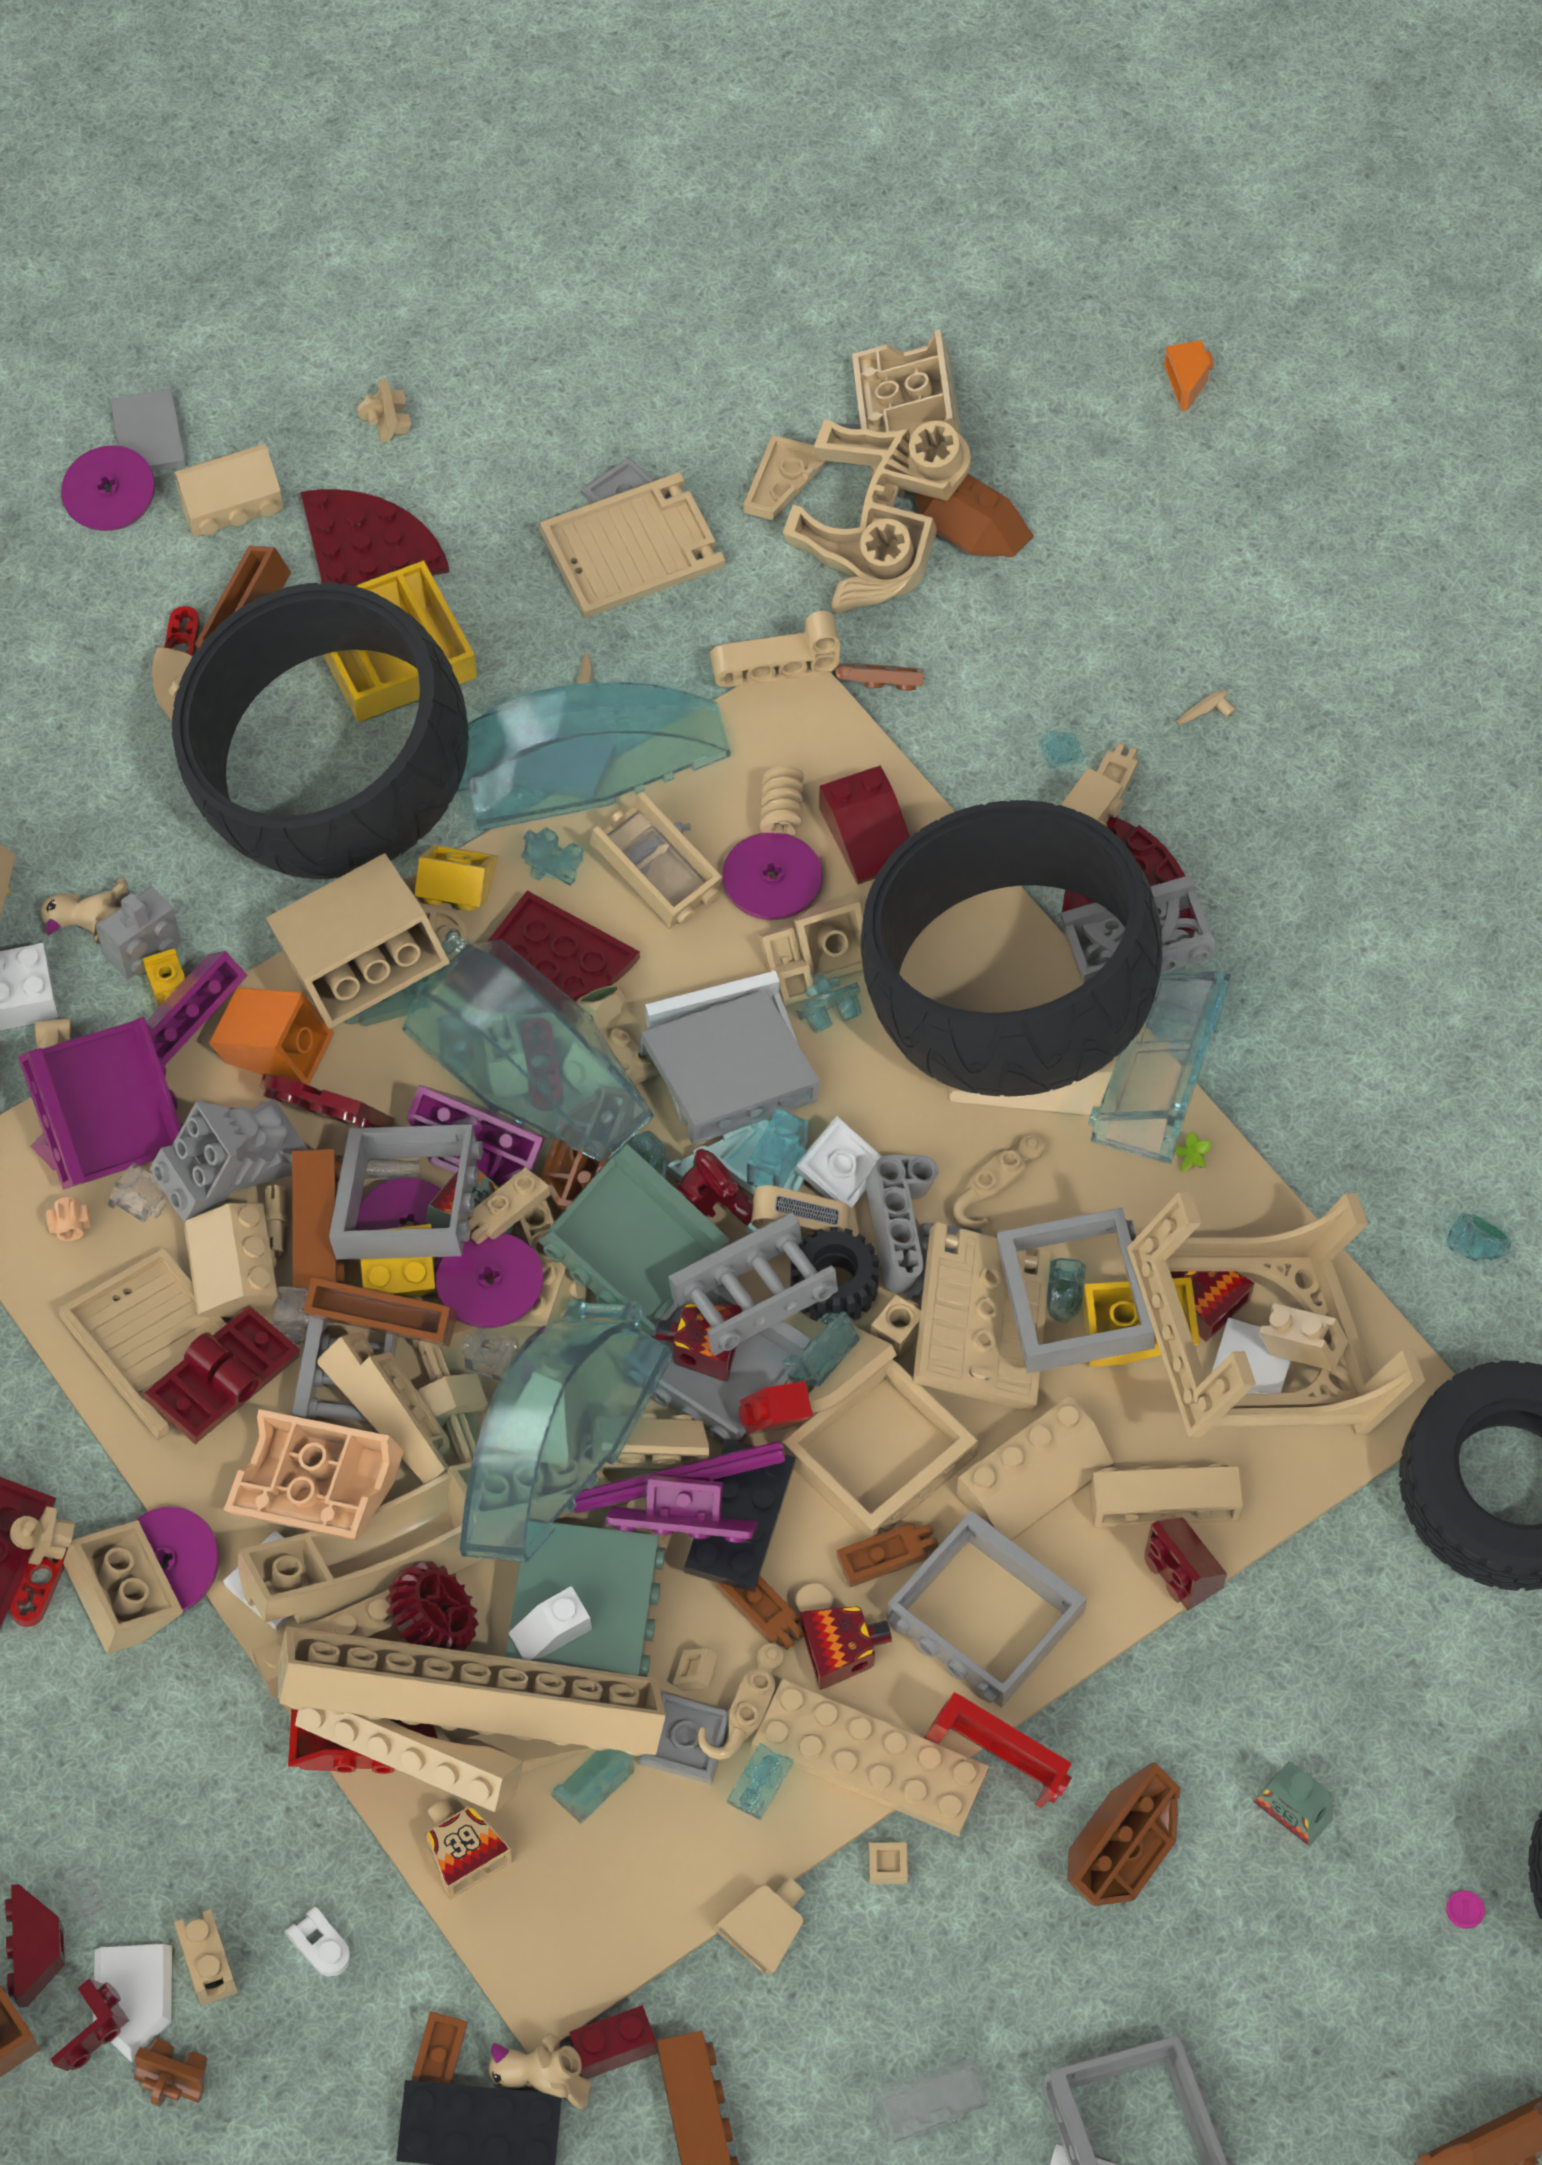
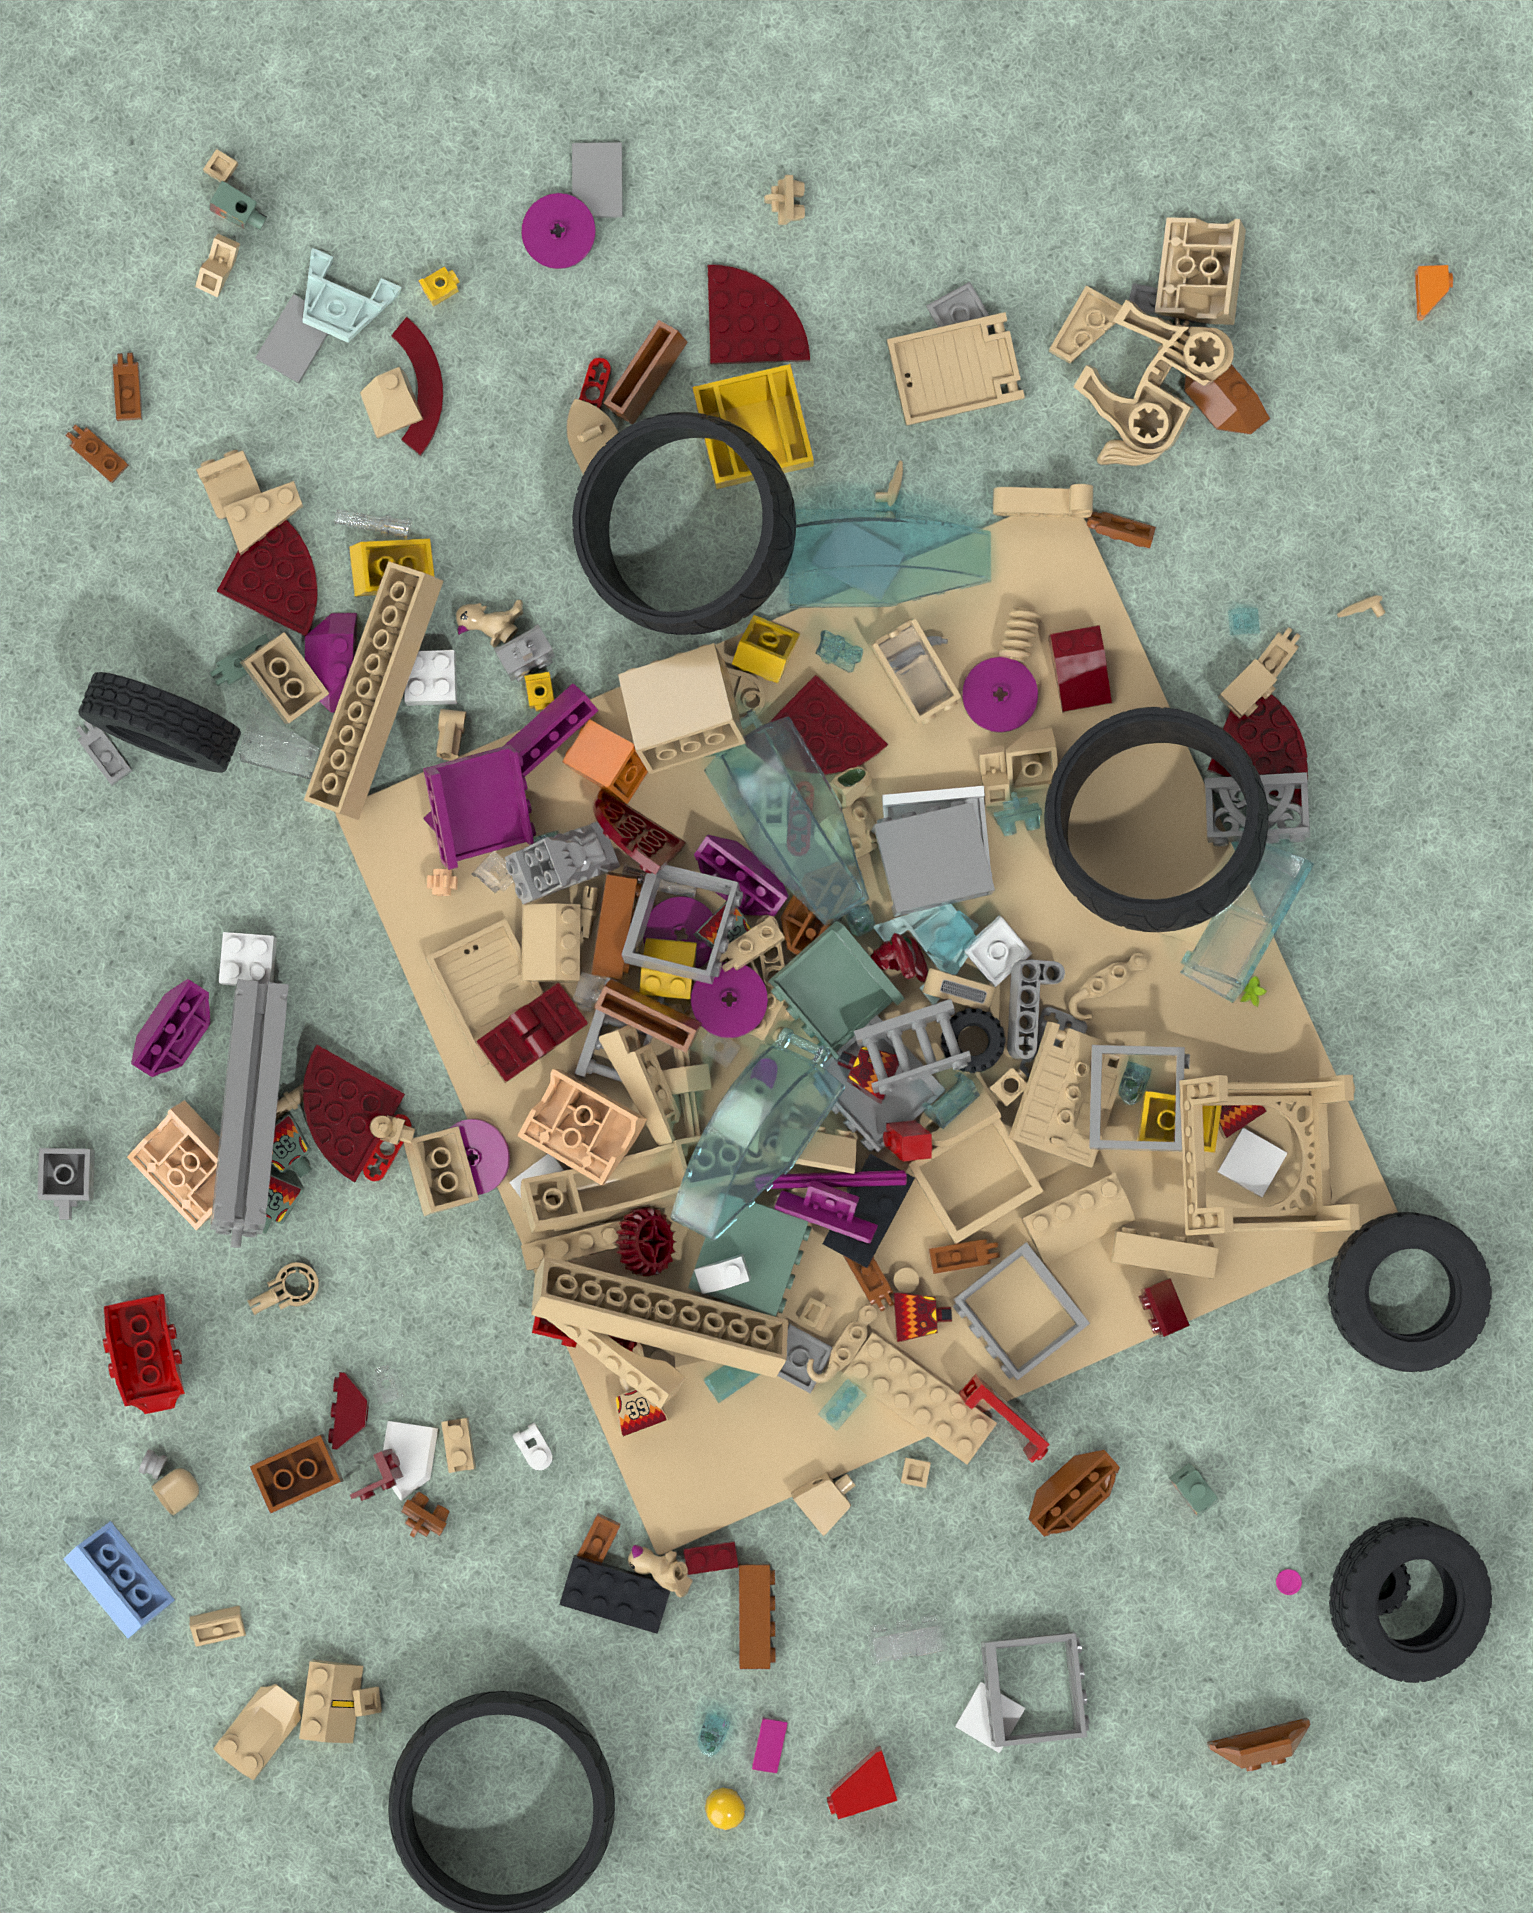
camera: 15 degrees right, 25 degrees up
(229, 490) = (652, 262): tan slope -> none
(1304, 1337) = (1289, 1164): tan brick -> none
(1477, 1238) = (1439, 1098): clear light blue rock -> none

